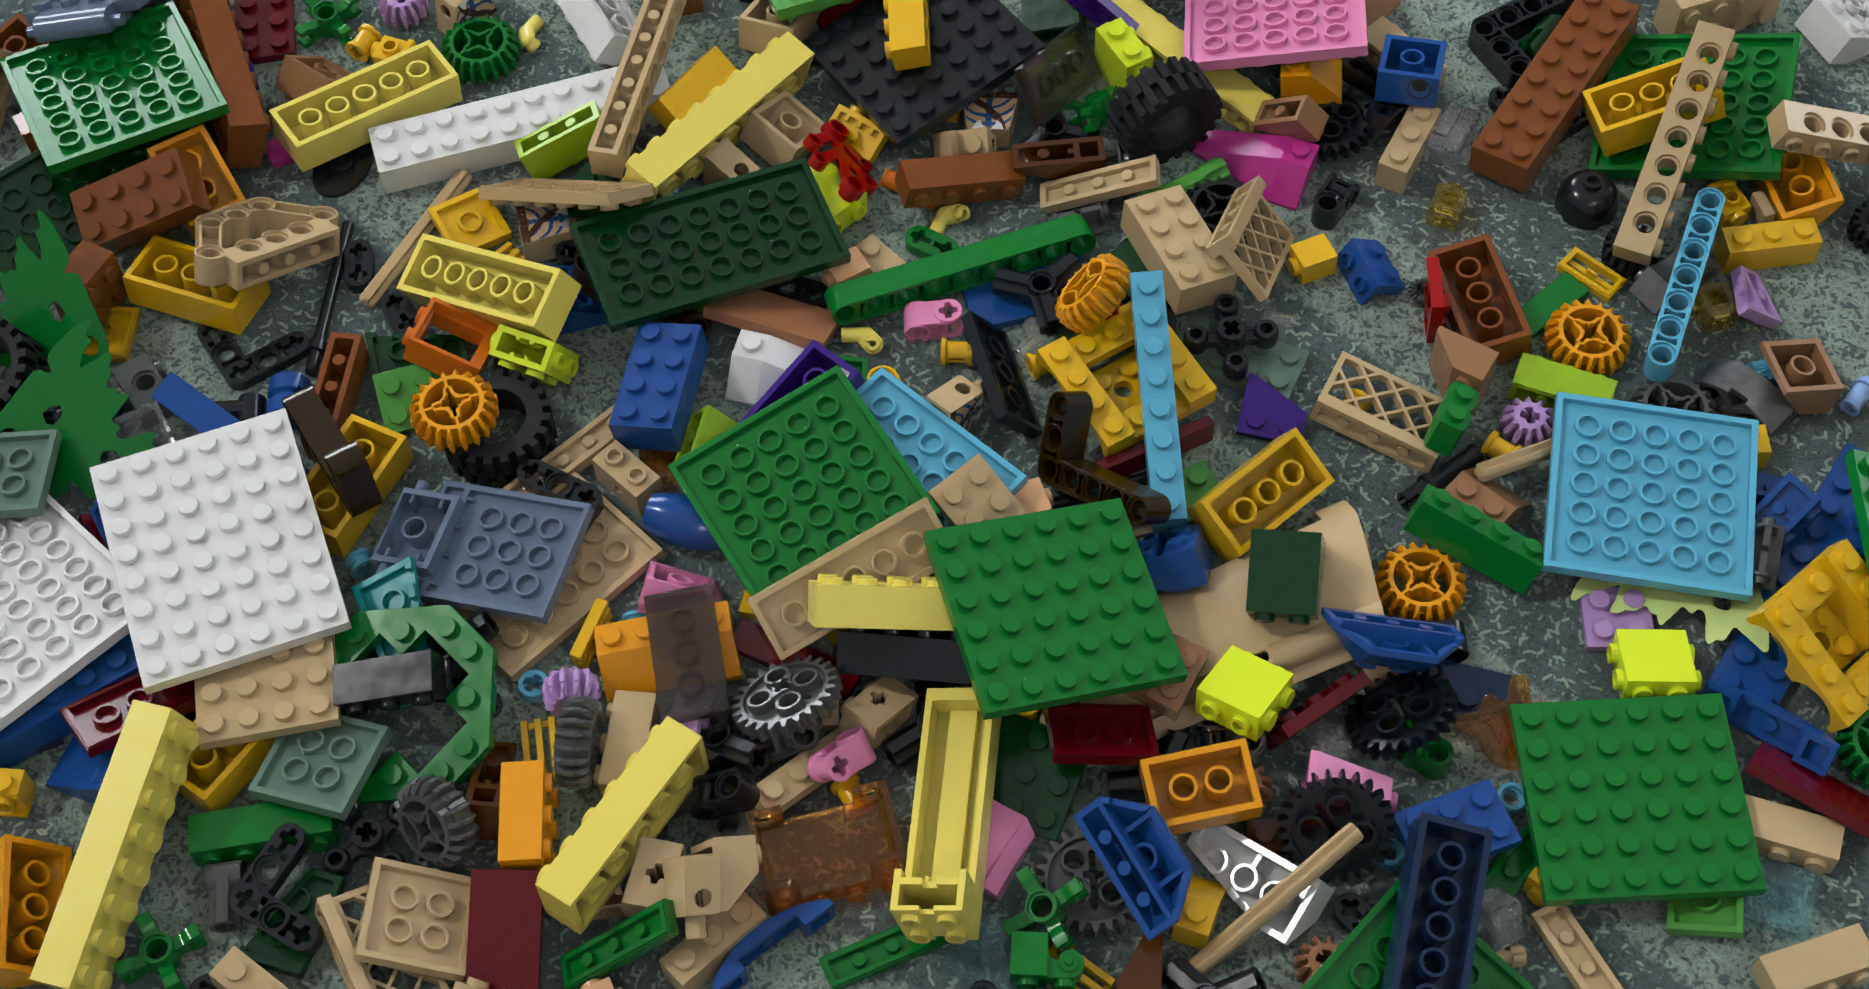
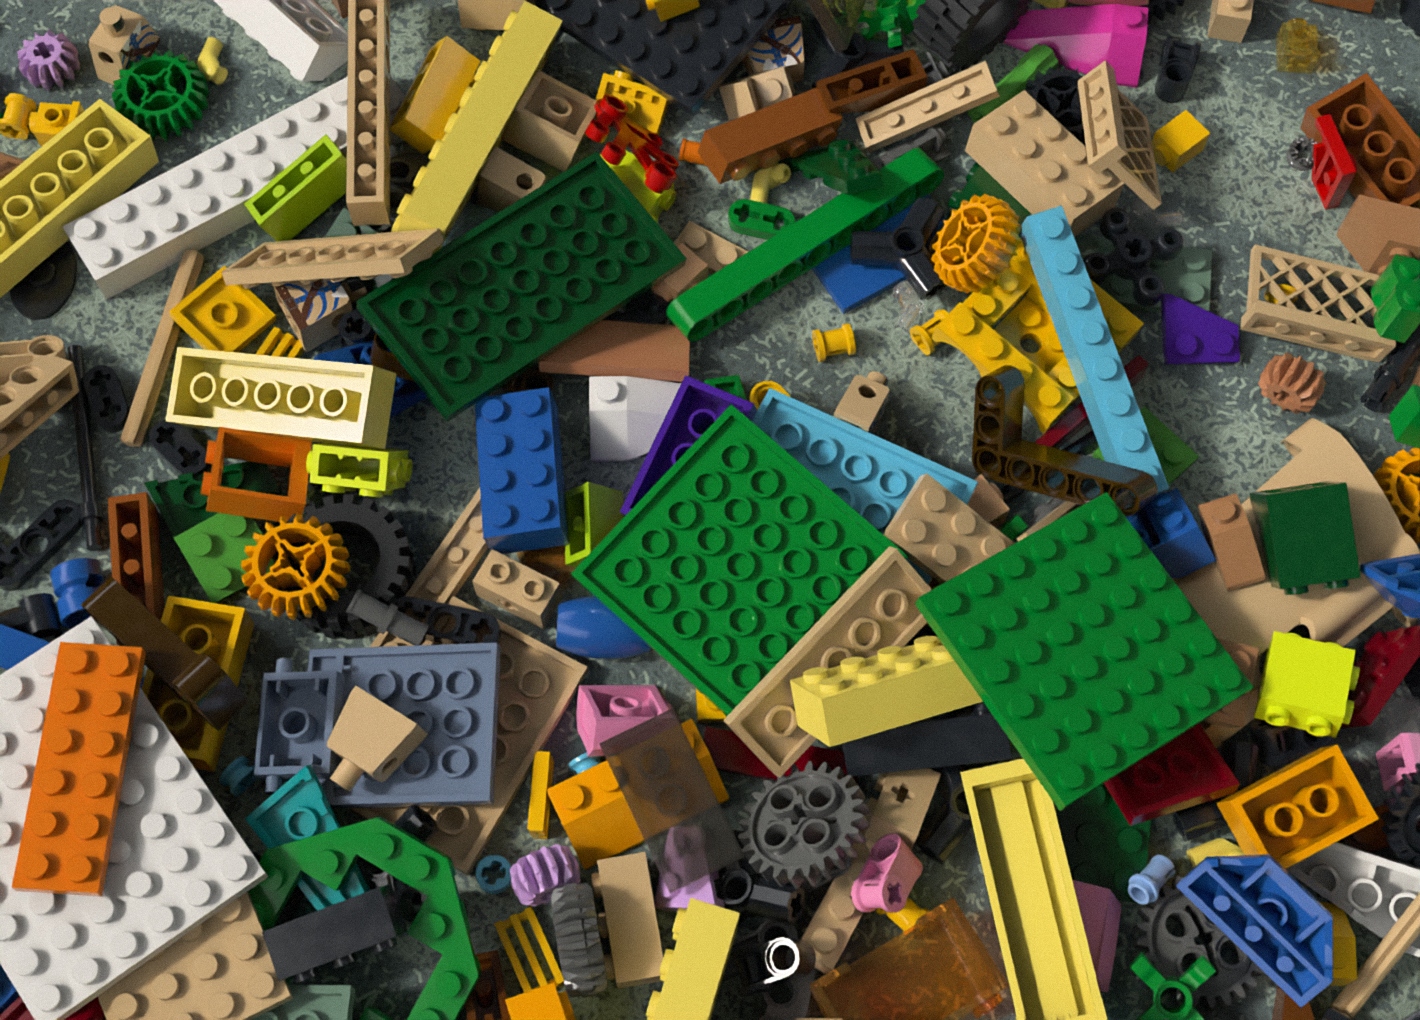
camera: 20 degrees left, 10 degrees up
(236, 510) = (79, 770): none -> orange plate
(467, 550) = (371, 739): none -> tan torso
(512, 467) = (387, 618): none -> dark grey pin
(864, 336) = (723, 348): light yellow arm -> none
(930, 320) = (792, 310): bright pink piece -> none
(1000, 375) = (900, 366): black plate -> none
(1005, 216) = (840, 166): none -> dark green wing
(1058, 821) = (1145, 886): none -> light blue pin
(1224, 570) = (1231, 542): none -> medium nougat slope
(1260, 494) = (1229, 432): yellow brick -> none
(1341, 465) = (1292, 383): none -> nougat gear
(1368, 270) = (1240, 140): blue bracket -> none

